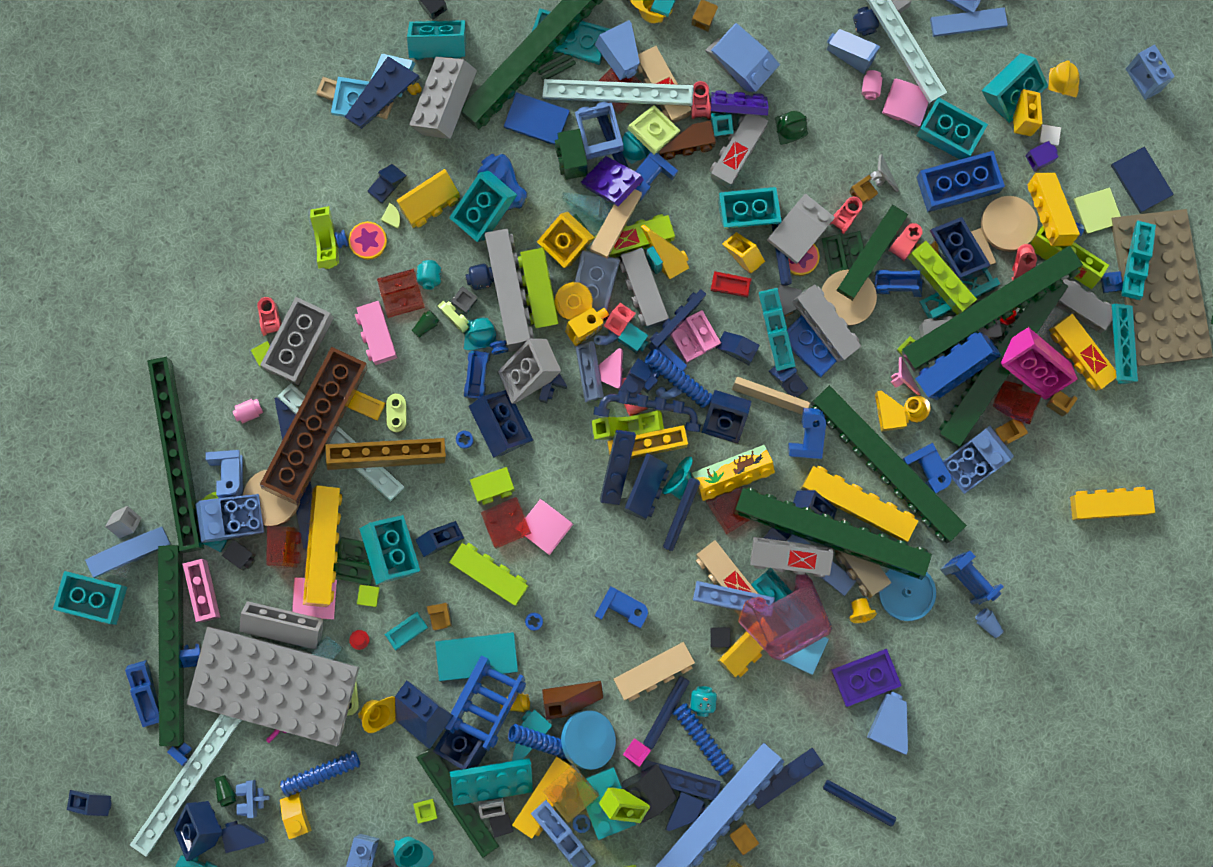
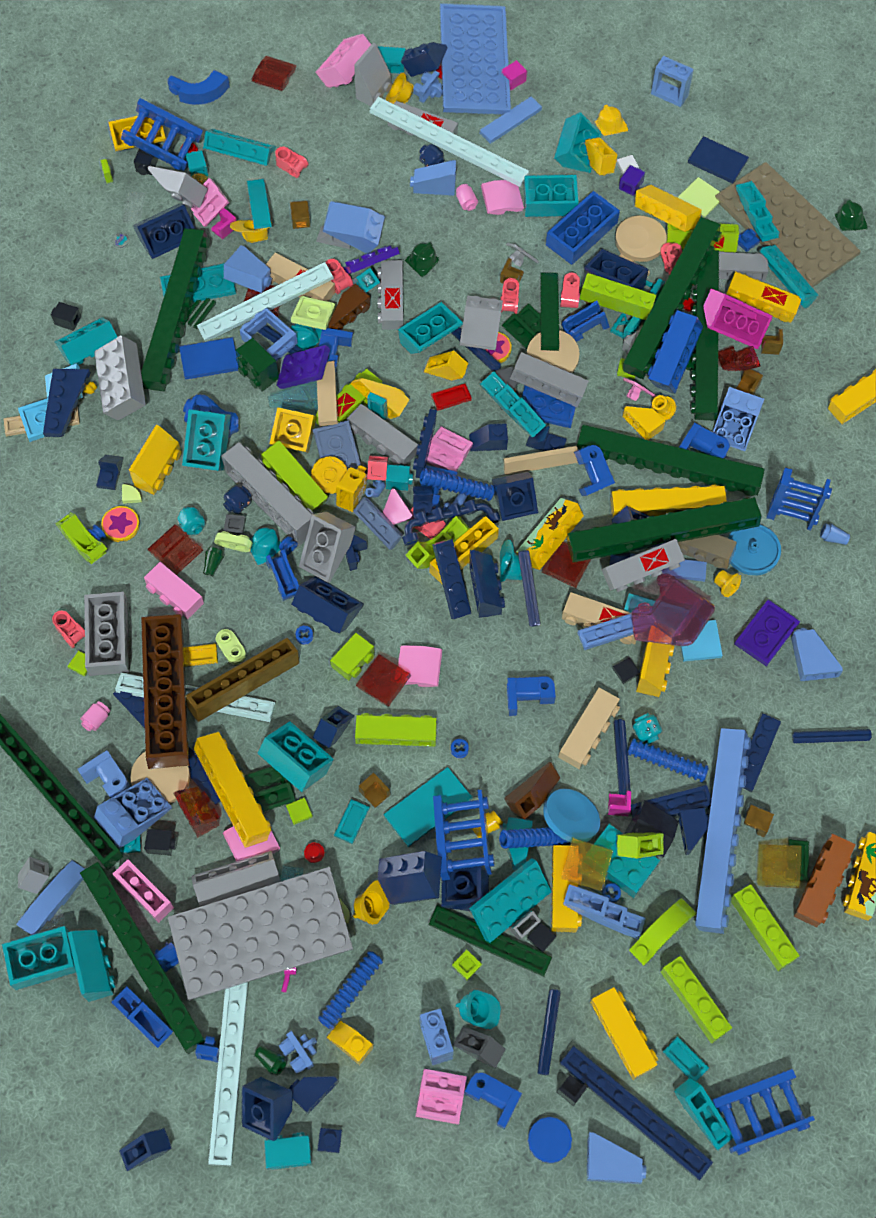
camera: 30 degrees left, 15 degrees down
(126, 628) = (91, 964): none -> teal slope

